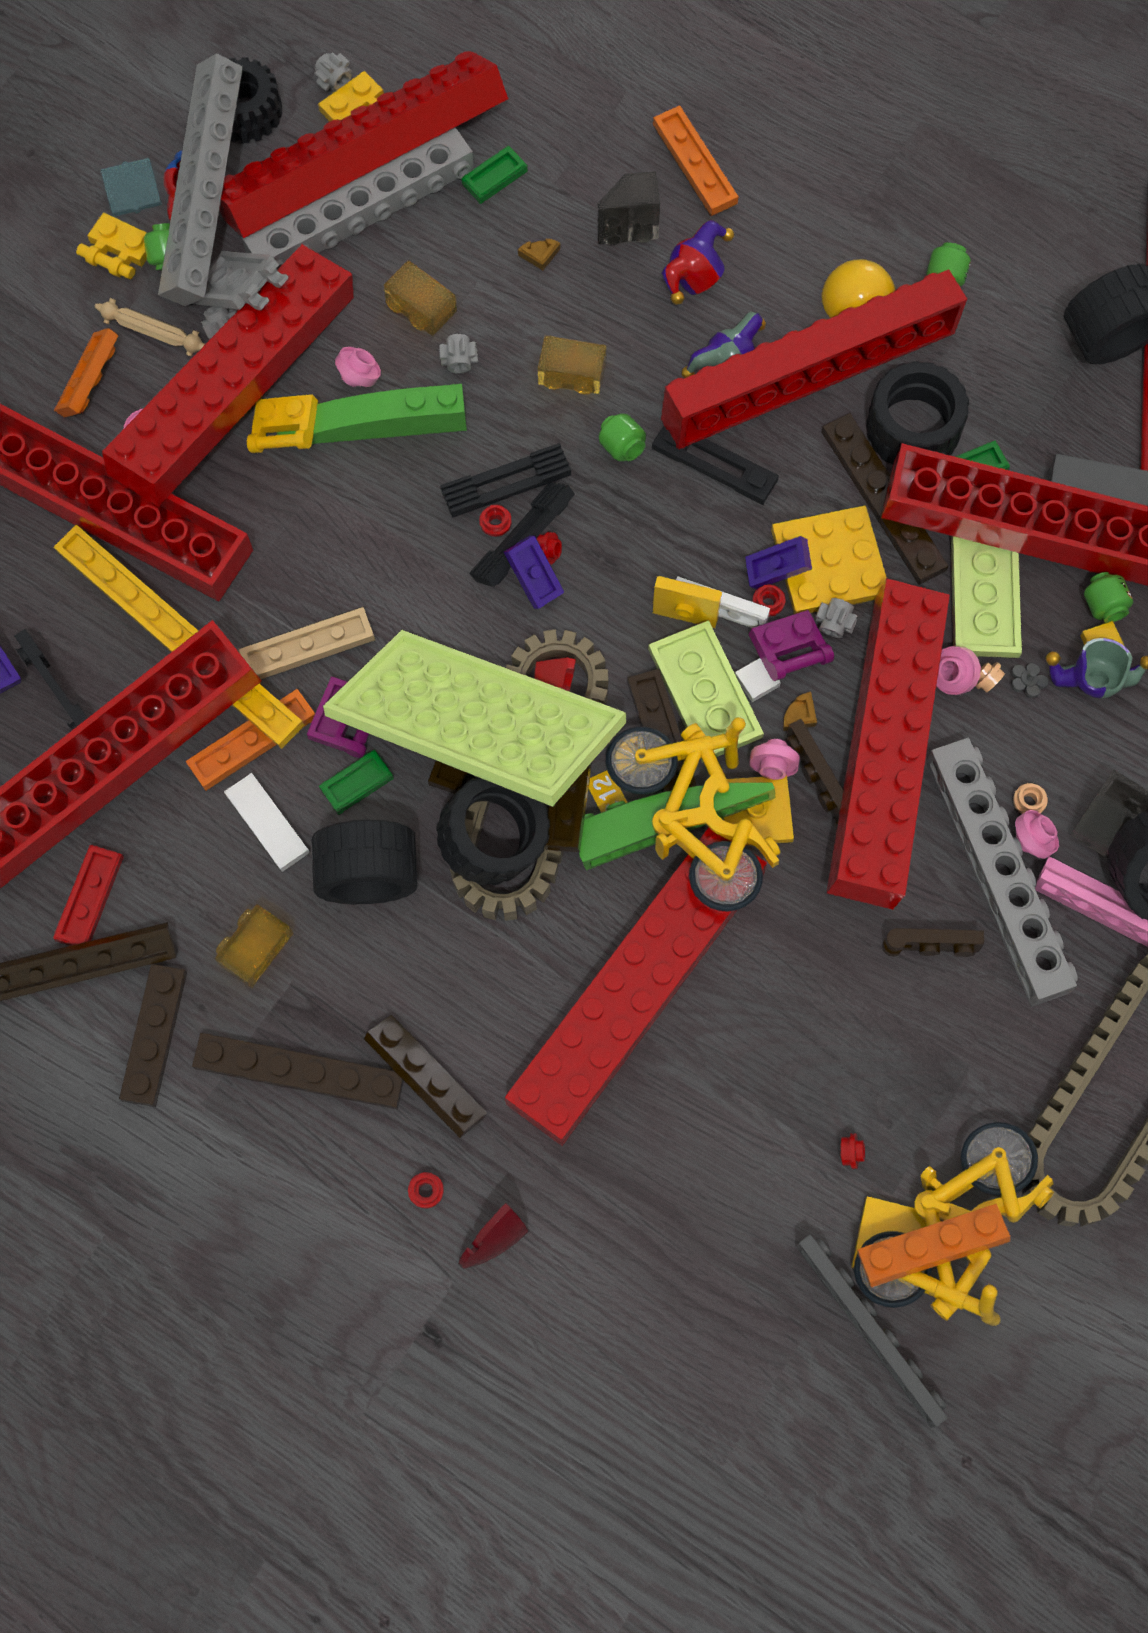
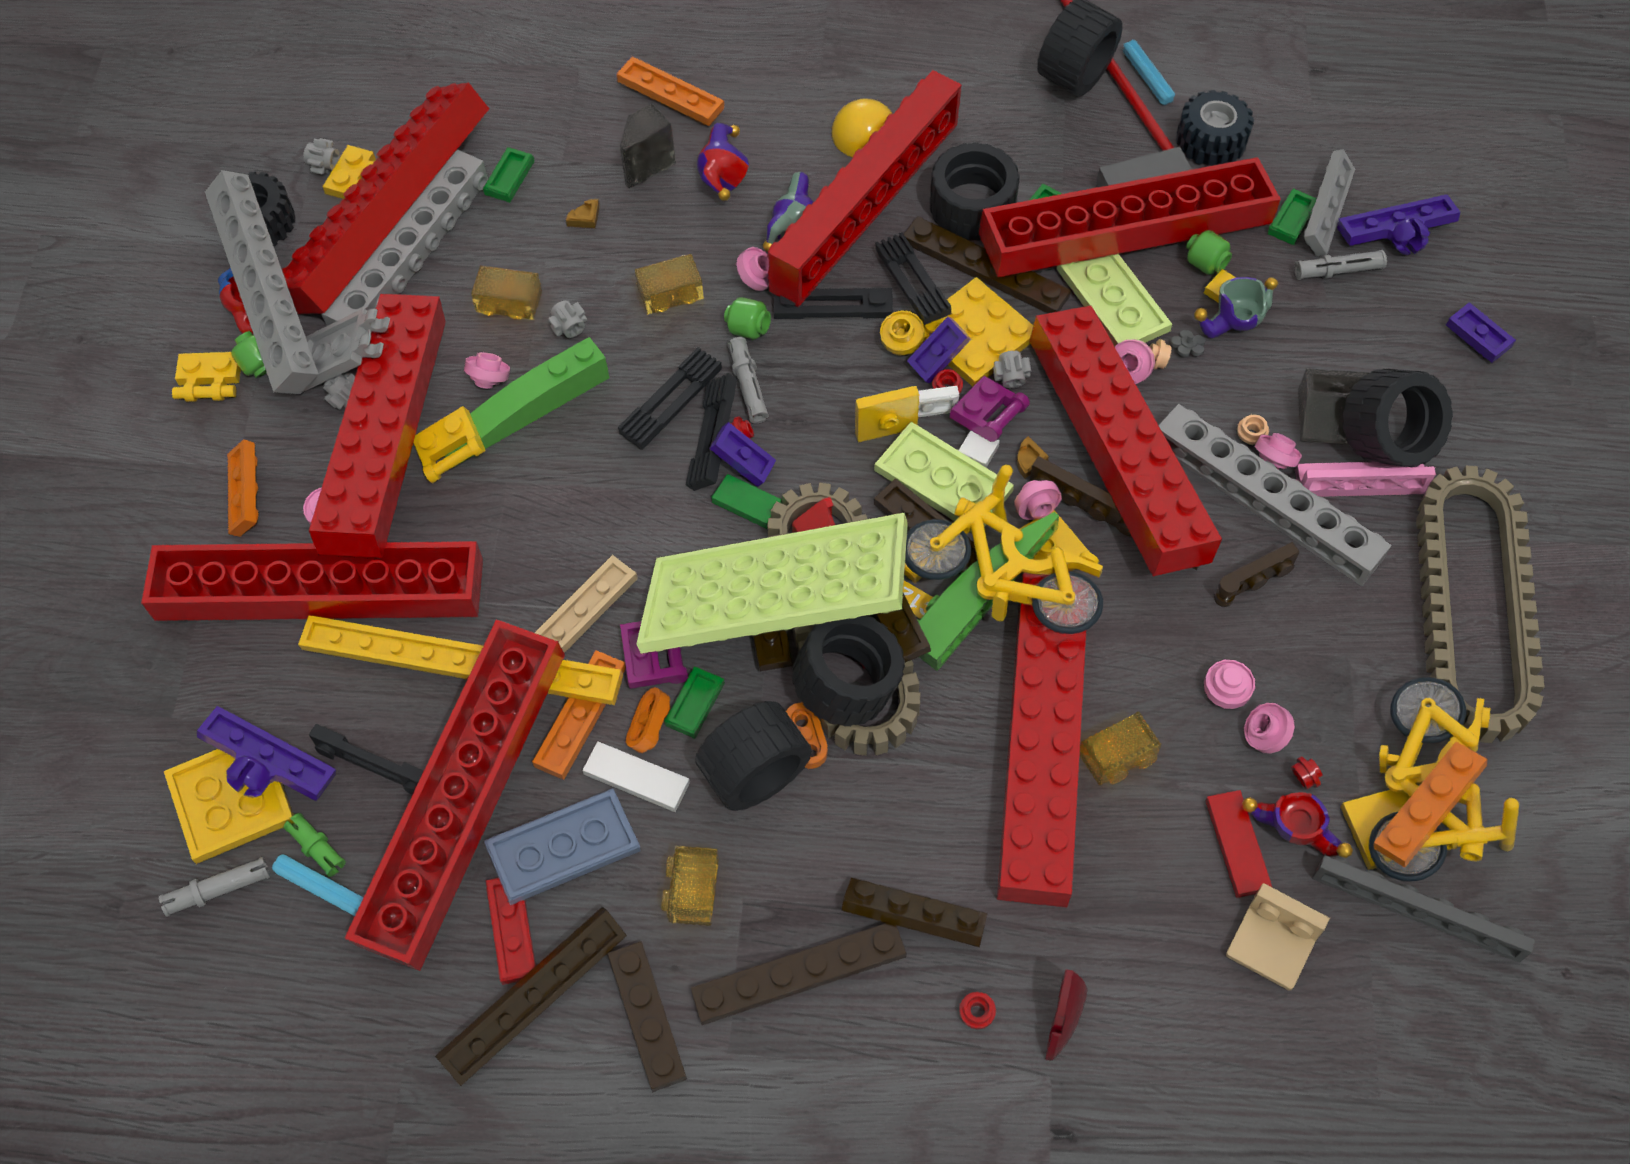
camera: 30 degrees left, 10 degrees down
(131, 187) = (191, 324): clear light blue piece -> none
(150, 326) = (278, 425): tan wheel -> none
(168, 849) = (561, 846): none -> sand blue tile
(304, 777) = (648, 720): none -> orange plate
(430, 868) = (812, 732): none -> orange plate
(495, 512) = (680, 426): red plate -> none
(513, 615) = (745, 500): none -> green tile
(590, 485) = (744, 369): none -> light grey pin
(653, 388) = (754, 268): none -> bright pink plate
(697, 1034) = (1120, 749): none -> clear yellow brick
(720, 1280) = (1276, 936): none -> tan bracket
(748, 1178) = (1238, 843): none -> red tile
(756, 527) = (902, 332): none -> yellow plate
(803, 440) = (930, 305): none -> black container
(812, 1190) = (1300, 821): none -> red piece
(837, 1030) = (1229, 684): none -> bright pink plate
(844, 1091) = (1269, 728): none -> bright pink plate
(951, 257) = (918, 69): bright green head -> none

